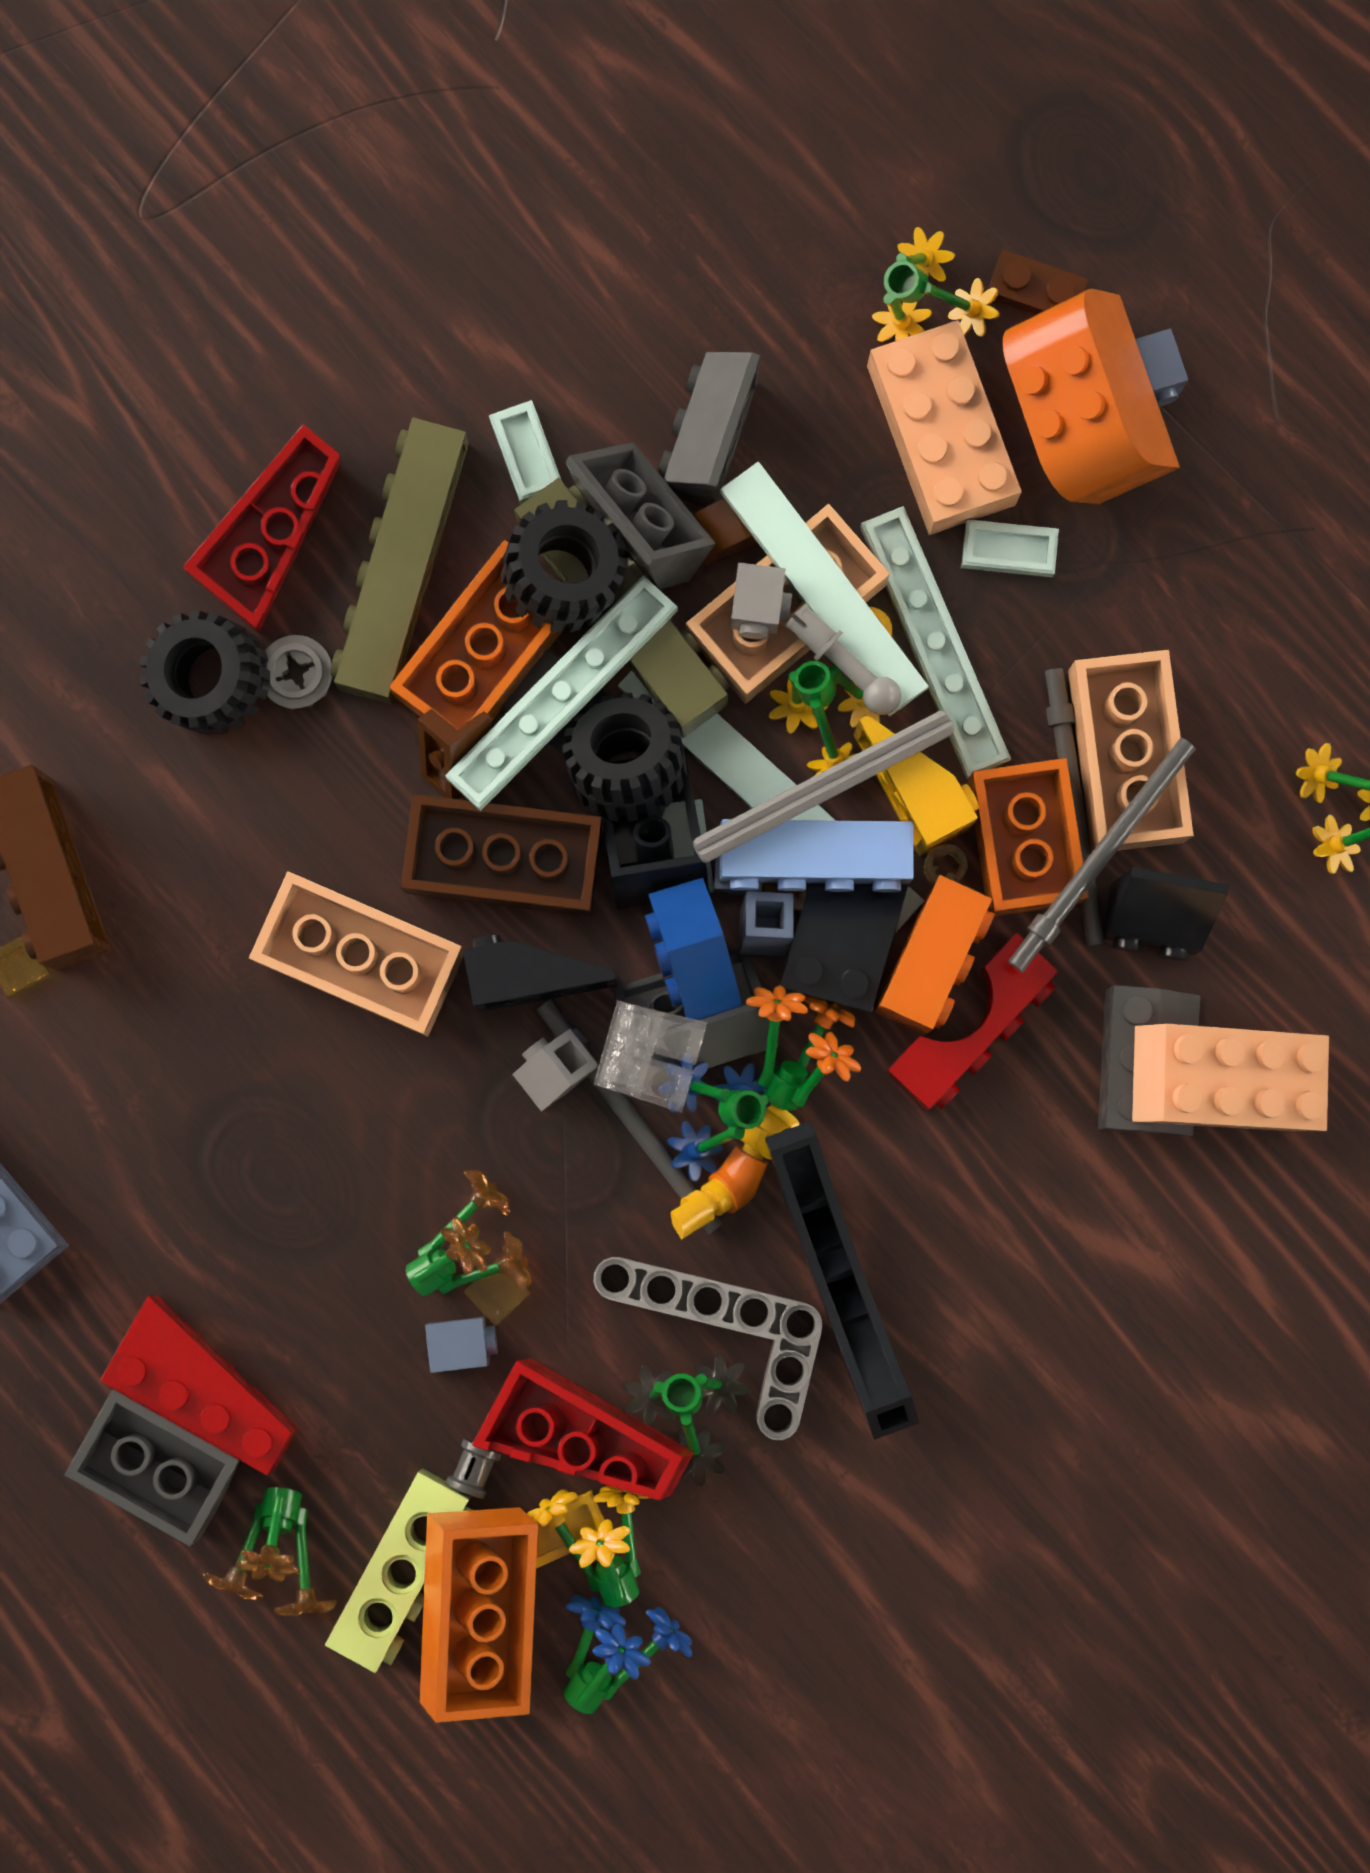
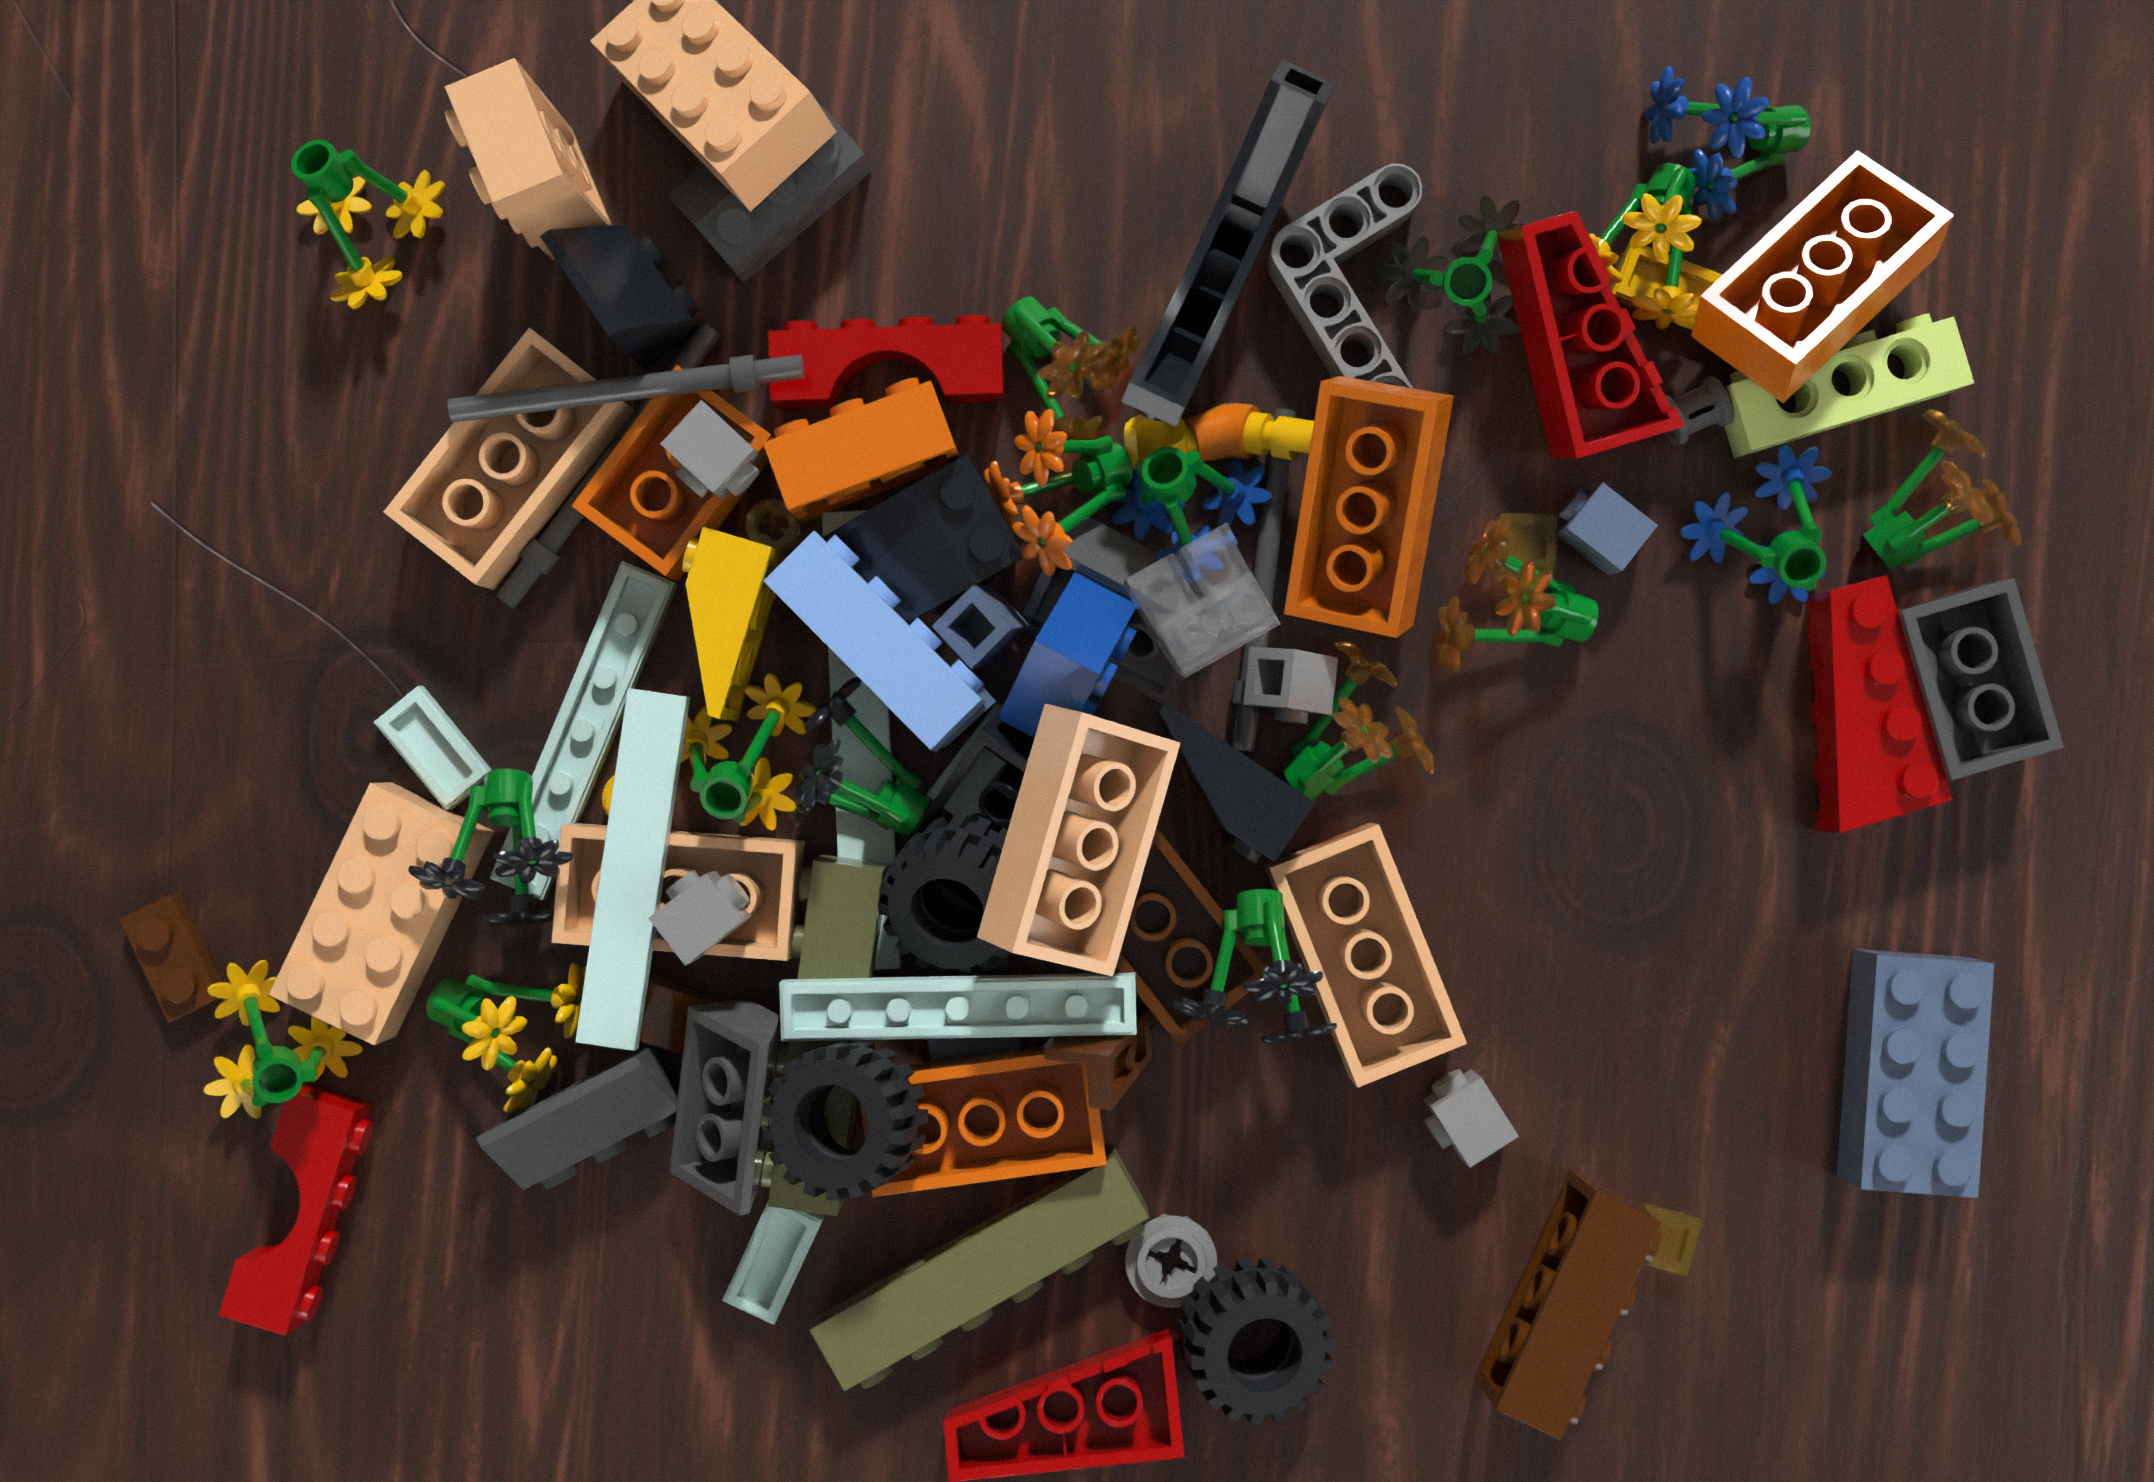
camera: 135 degrees left, 5 degrees up
(204, 920) = (1467, 1117): none -> light grey brick
(334, 1426) = (1793, 556): none -> plant
(435, 909) = (1262, 923): none -> plant
(490, 1038) = (1318, 766): none -> plant
(586, 848) = (1078, 840): none -> light nougat brick
(611, 1211) = (1367, 505): none -> orange brick
(715, 771) = (893, 803): none -> plant
(815, 420) = (487, 1030): none -> yellow plant
(823, 786) = (811, 688): light grey axle -> none
(849, 267) = (319, 1141): none -> red arch
(880, 693) = (677, 722): light grey pin -> none
(905, 1126) = (1038, 333): none -> plant
(933, 558) = (508, 804): none -> plant
(1014, 864) = (712, 454): none -> light grey brick
(1088, 398) = (223, 807): orange brick -> none
(1163, 365) = (142, 779): sand blue brick -> none
(1284, 925) = (523, 154): none -> light nougat brick

